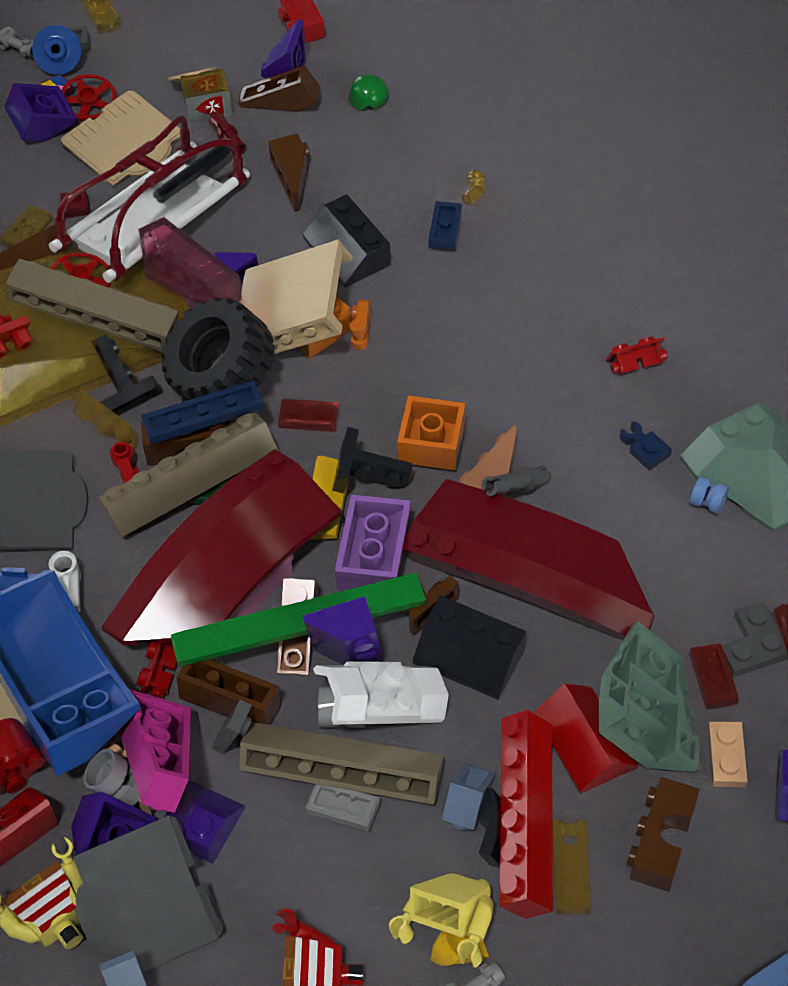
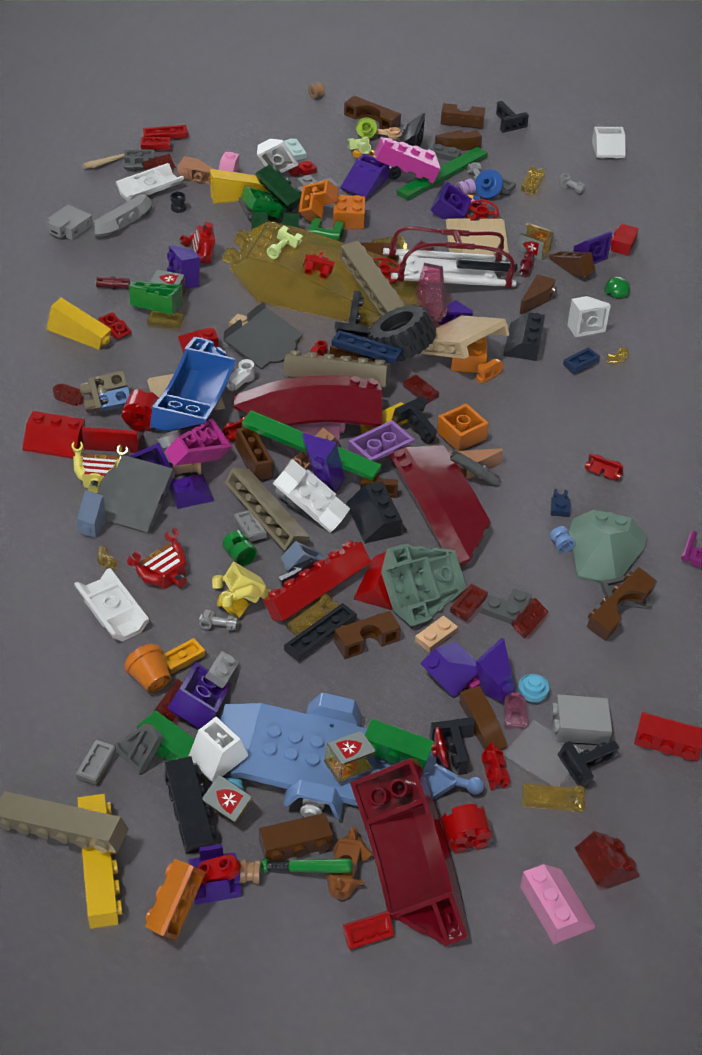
camera: 40 degrees right, 10 degrees down
(30, 72) = (467, 186): none -> lavender wheel
(102, 418) = (329, 330): clear yellow plate -> none
(233, 727) = (239, 460): dark grey plate -> none
(387, 854) = (239, 548): none -> green wheel
(391, 159) = (588, 316): none -> white slope
(607, 883) = (319, 632): none -> black plate

